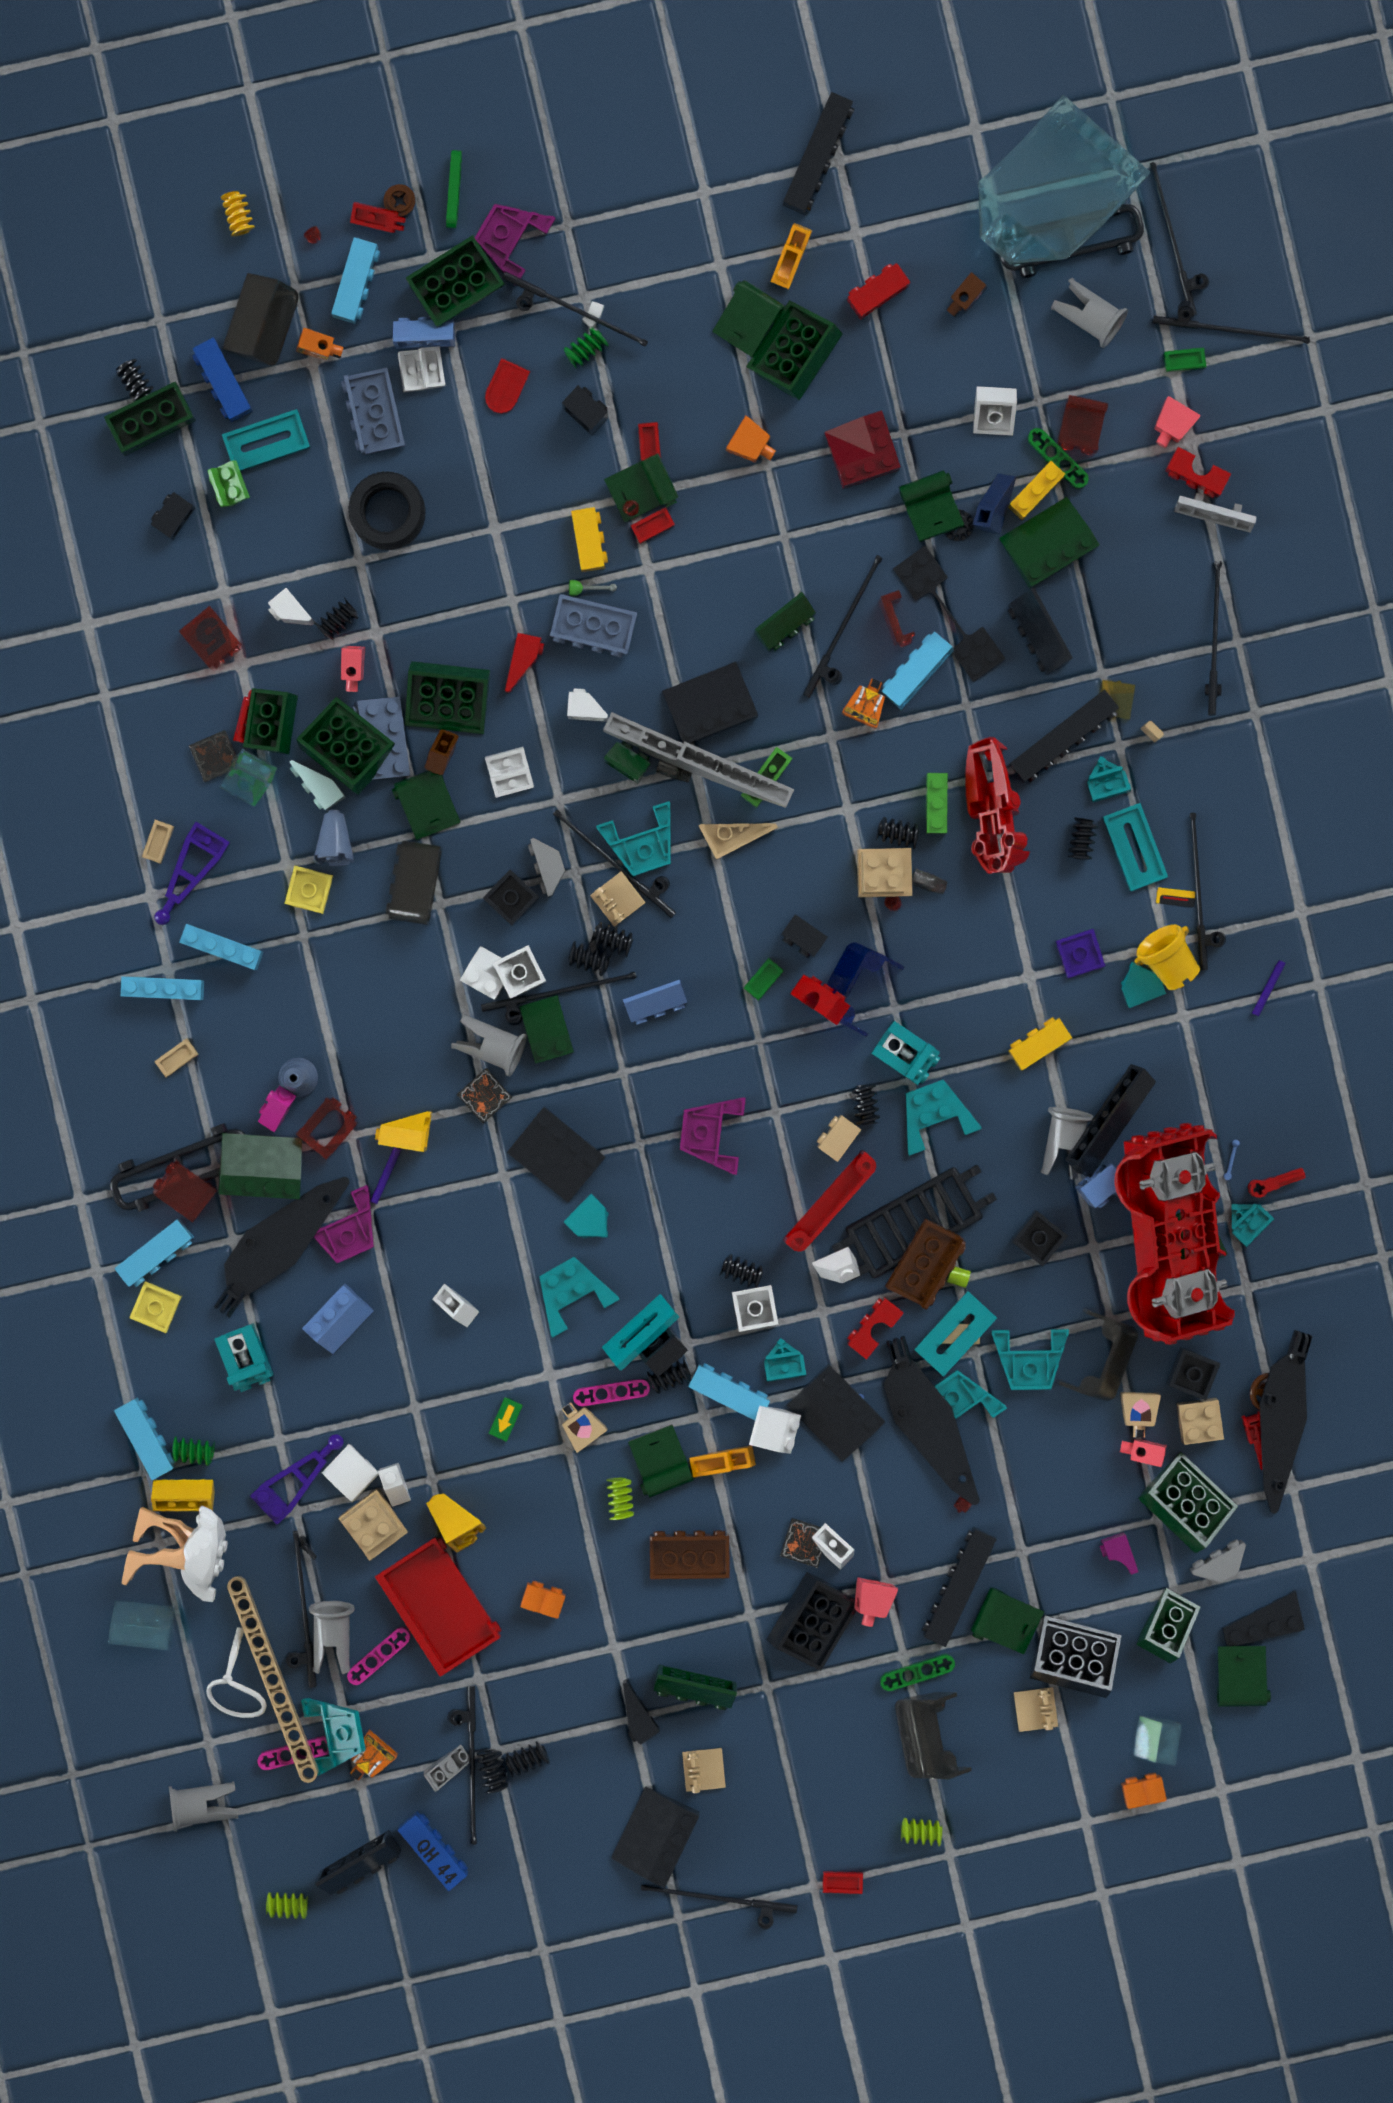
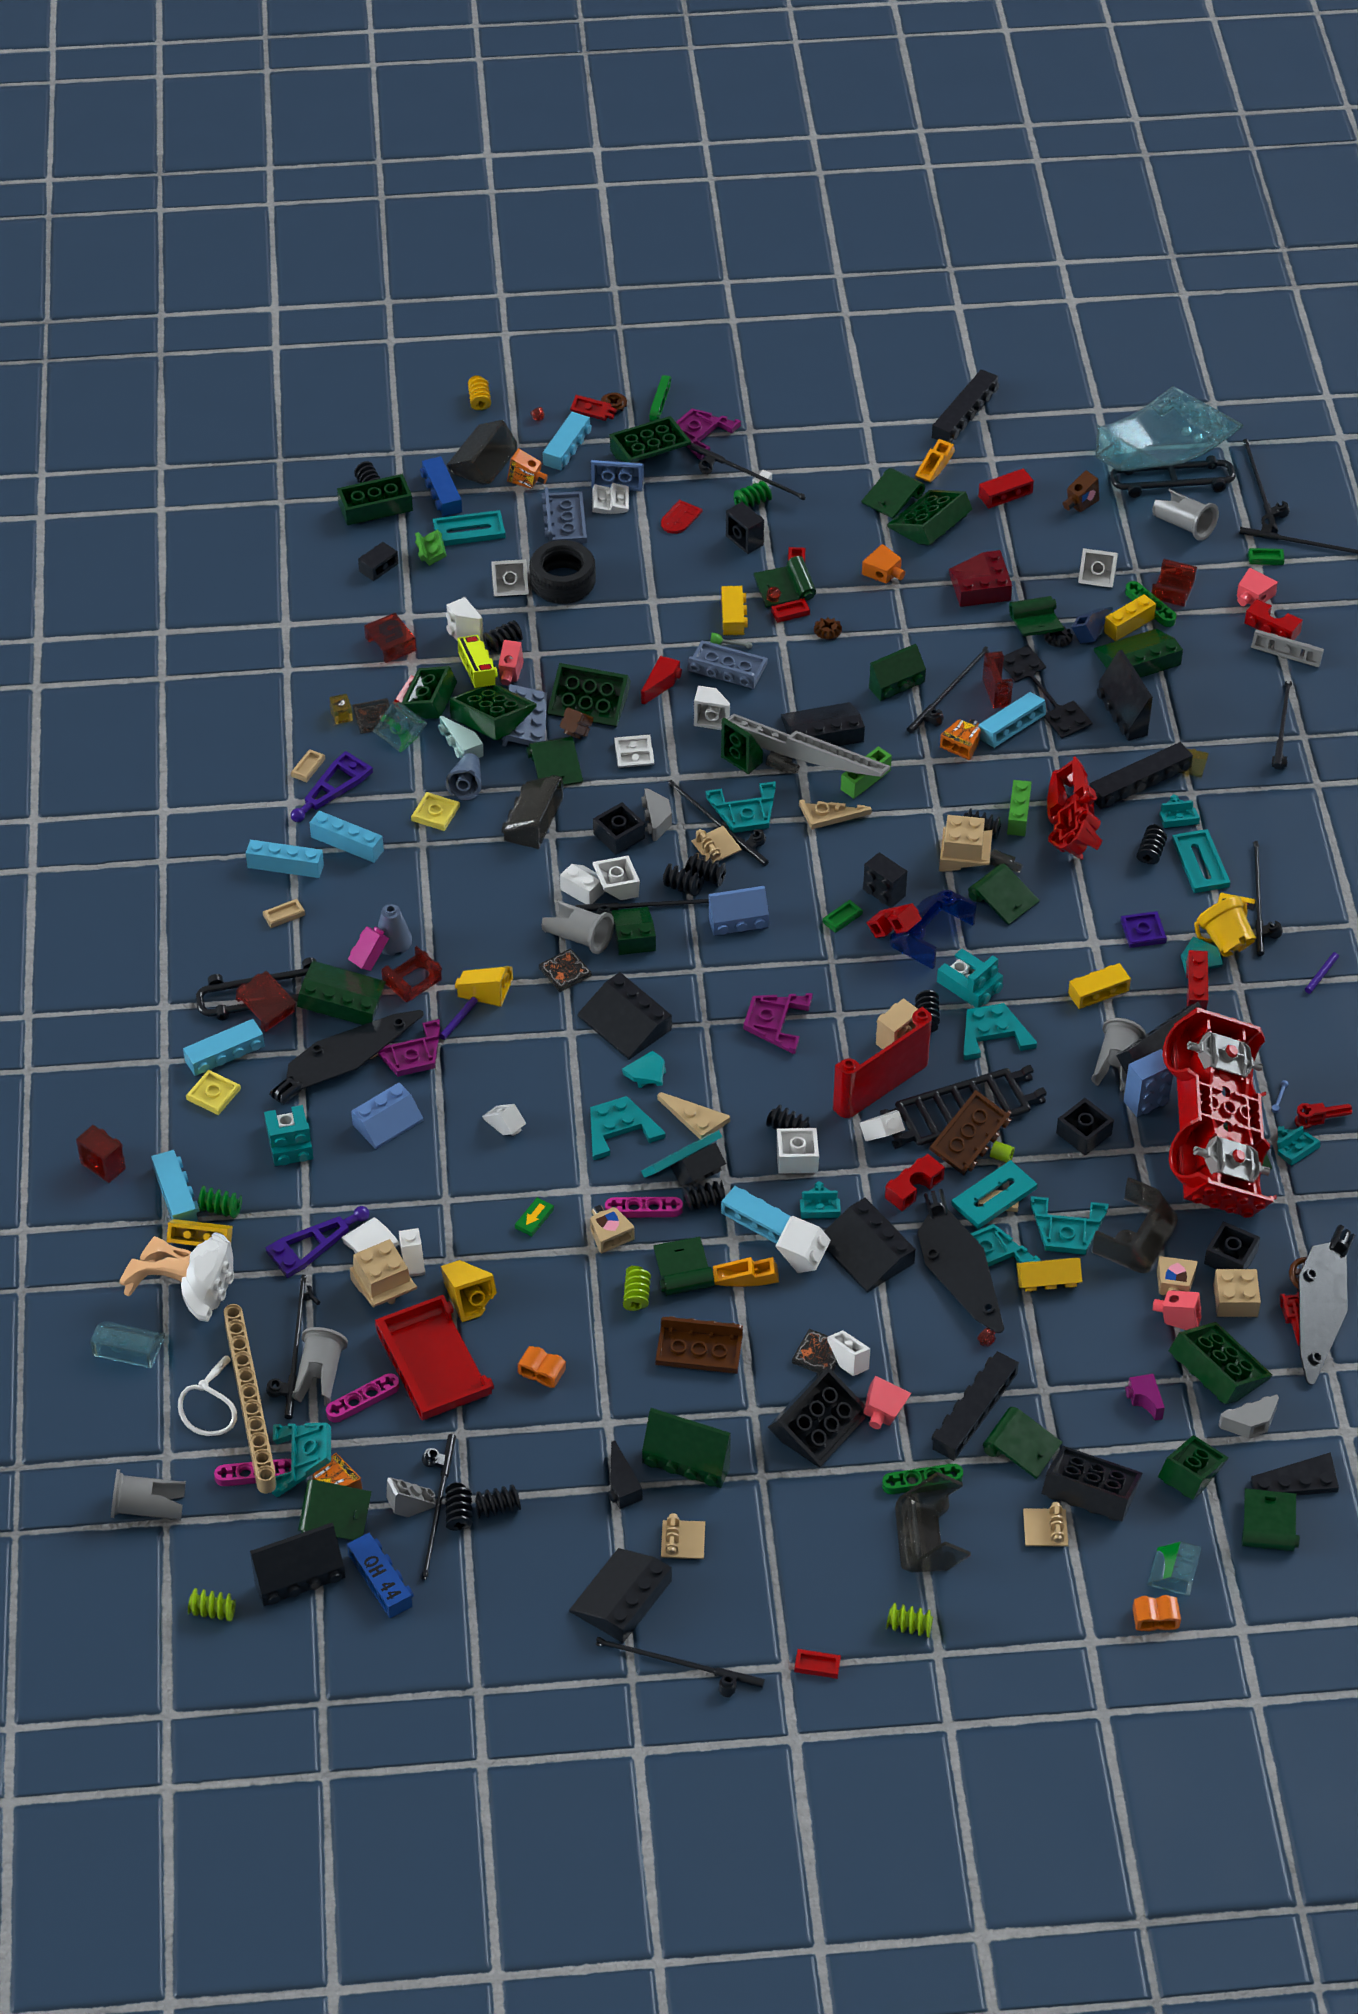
camera: 10 degrees right, 40 degrees down
(63, 1414) = (101, 1153): none -> clear red brick
(177, 755) = (341, 709): none -> clear yellow brick
(314, 669) = (477, 661): none -> neon yellow brick
(327, 521) = (510, 577): none -> white slope
(377, 1794) = (335, 1504): none -> dark green door
(650, 1273) = (695, 1117): none -> tan wing
(707, 549) = (825, 632): none -> reddish brown gear
(893, 903) = (971, 873): clear red hinge -> none
(927, 927) = (1003, 892): none -> dark green door
(1017, 1424) = (1049, 1273): none -> yellow brick
(1142, 1031) = (1197, 978): none -> red arch
(1152, 731) = (1221, 775): tan tile -> none

